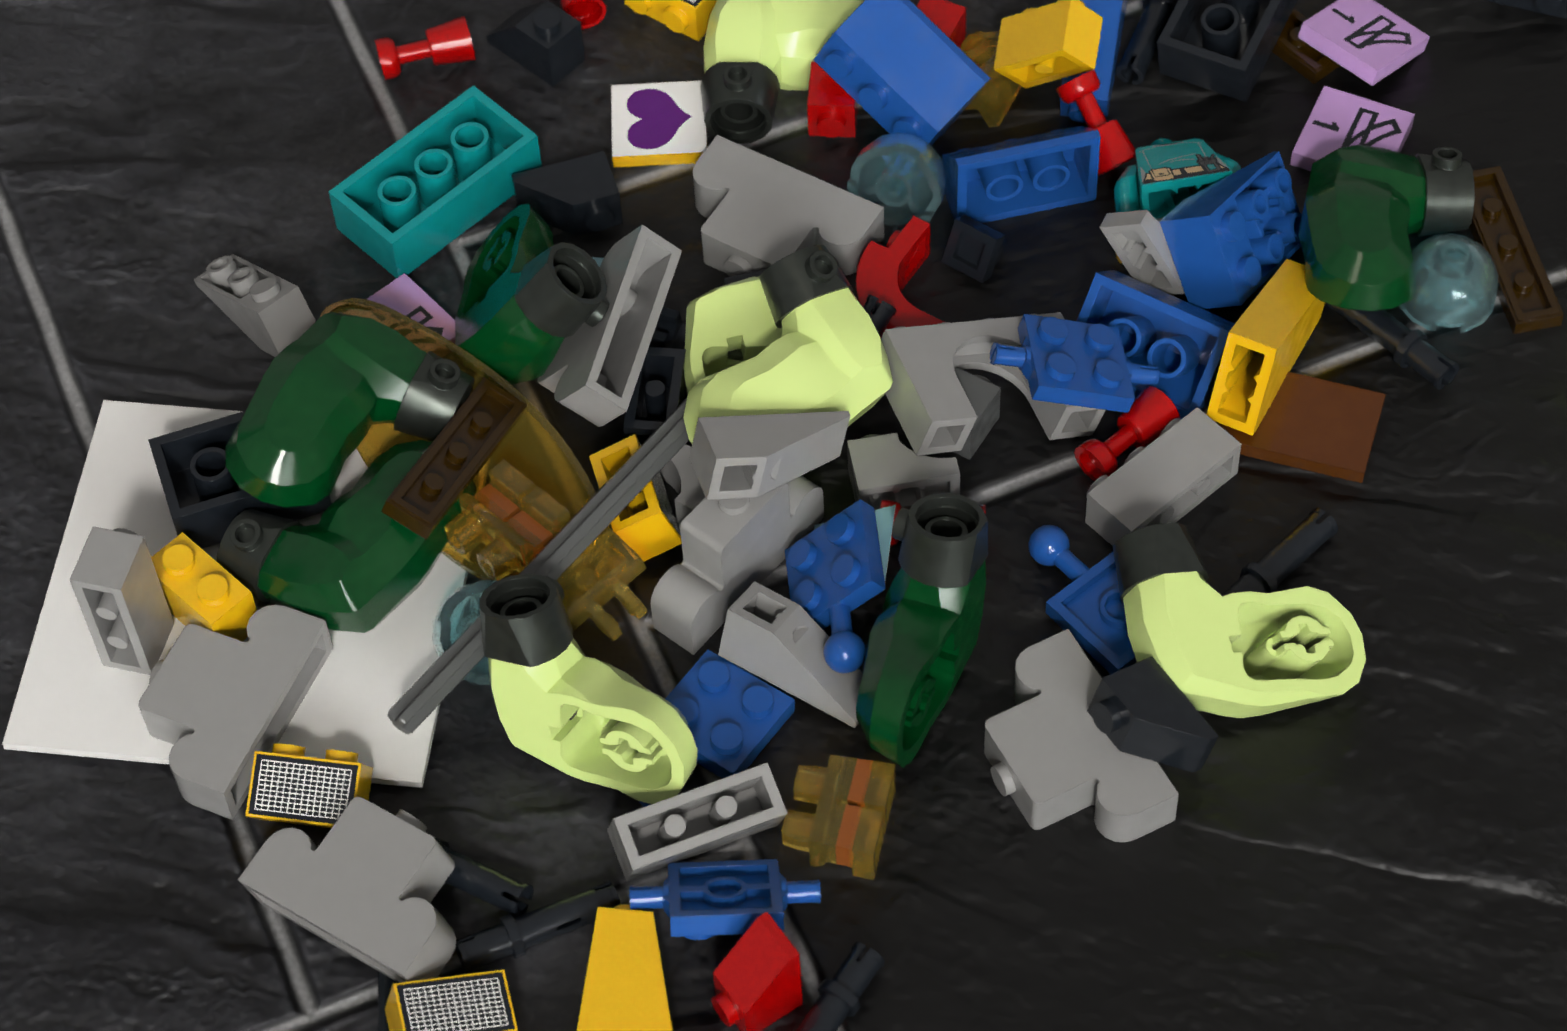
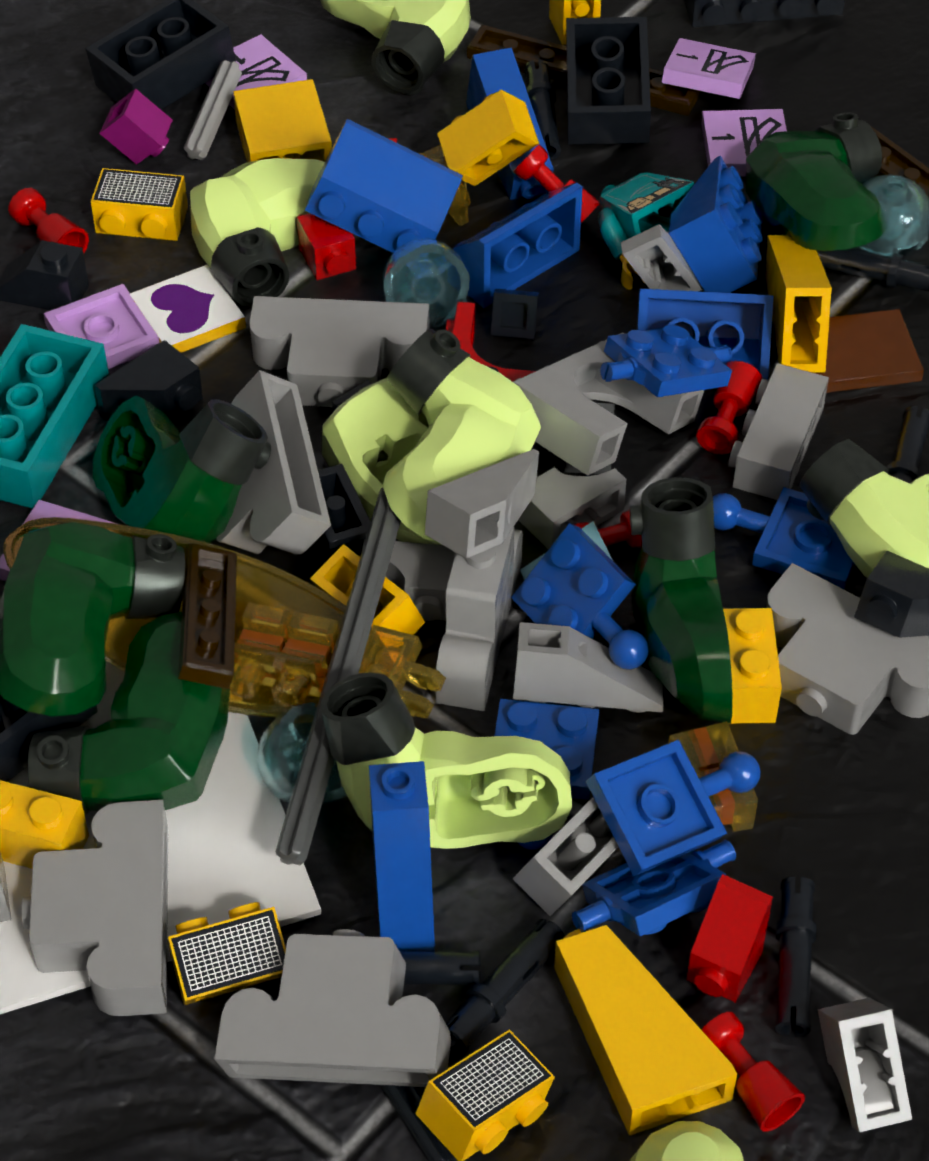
camera: 30 degrees left, 5 degrees down
(493, 769) = (402, 855): none -> blue slope
(568, 113) = (109, 319): none -> lavender tile
(767, 820) = (661, 804): none -> blue plate
(954, 726) = (753, 665): none -> yellow brick

